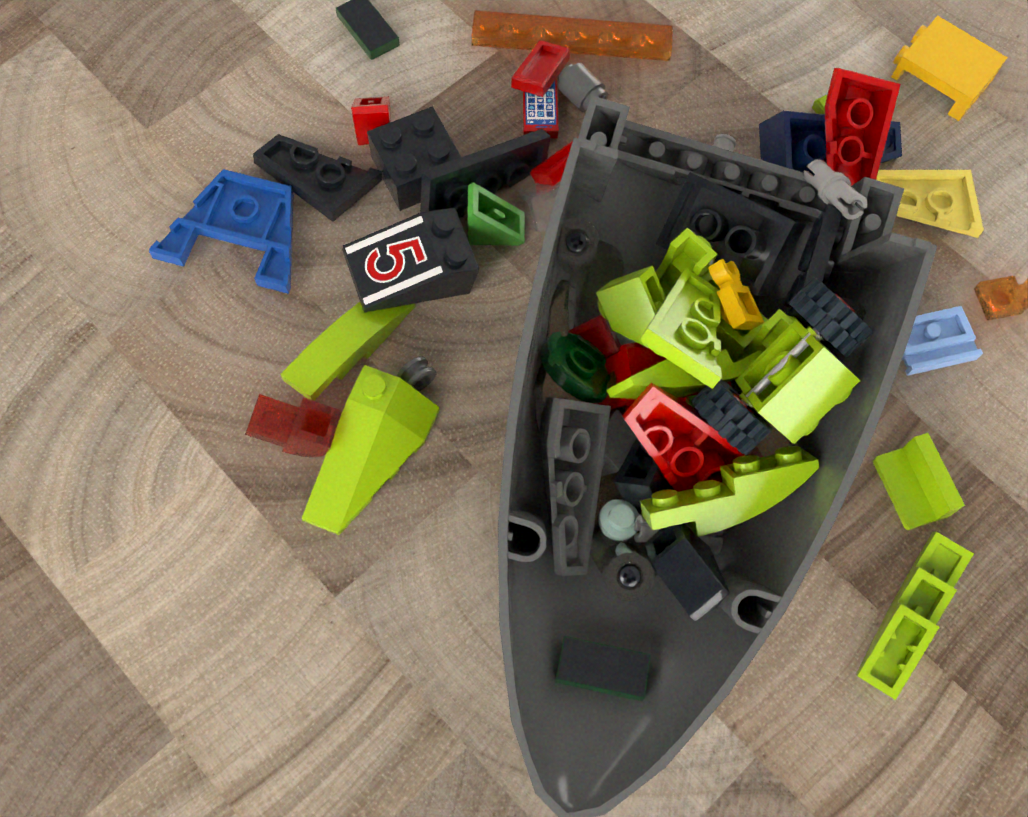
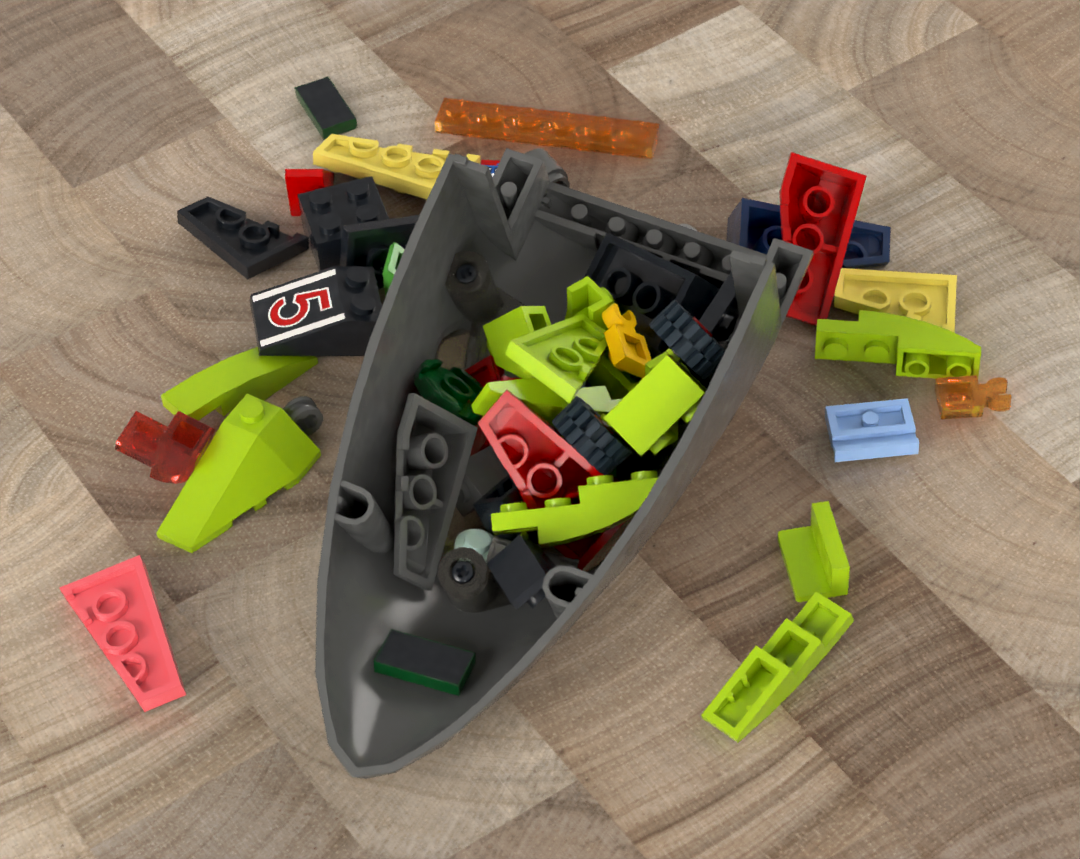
camera: 15 degrees right, 20 degrees down
(242, 213) = (152, 264): blue wing -> none
(294, 634) = (129, 629): none -> coral wing
(461, 92) = (389, 167): none -> light yellow wing
(540, 68) = (492, 151): red tile -> none
(835, 189) = (744, 242): light grey pin -> none
(950, 63) = (965, 177): yellow panel -> none
(961, 248) = (911, 344): none -> lime slope

